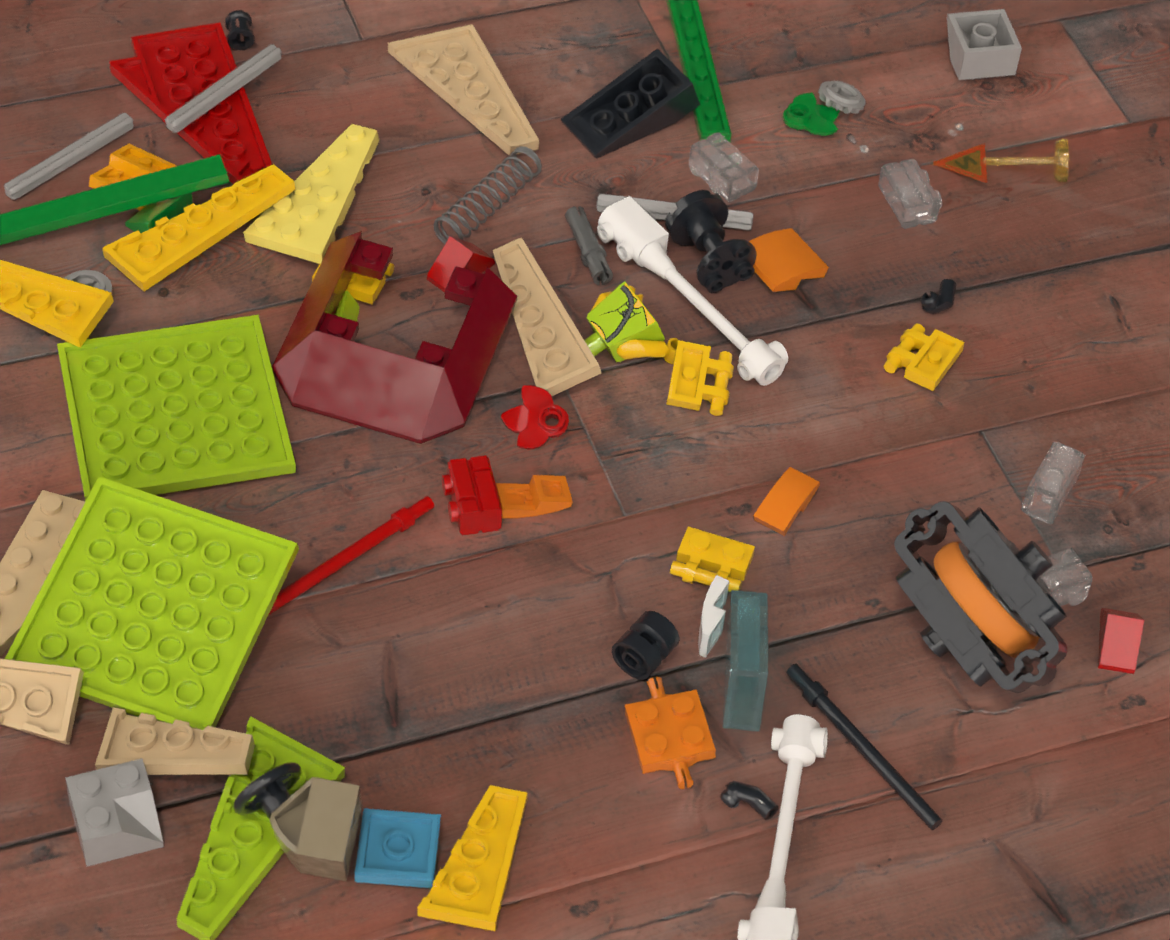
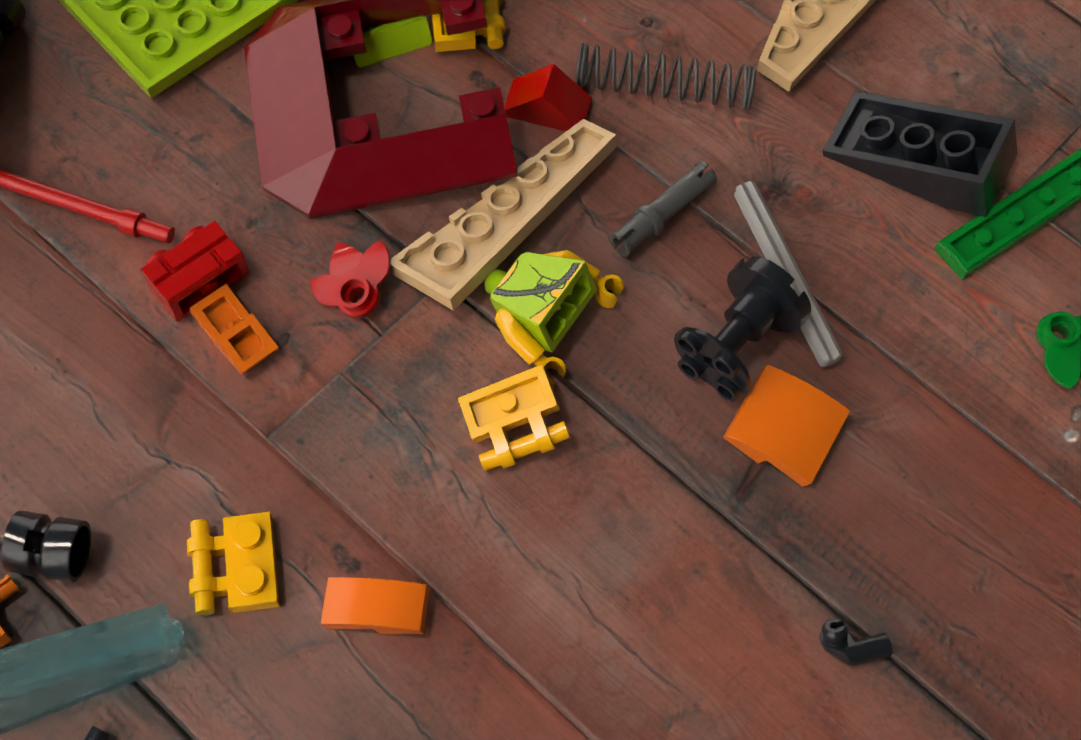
camera: 65 degrees right, 15 degrees up
(646, 243) = (696, 265): white bar -> none
(712, 615) = (132, 594): white slope -> none
(723, 167) = (895, 287): clear brick -> none
(909, 193) = (1014, 524): clear brick -> none
(931, 362) = (725, 681): yellow plate -> none

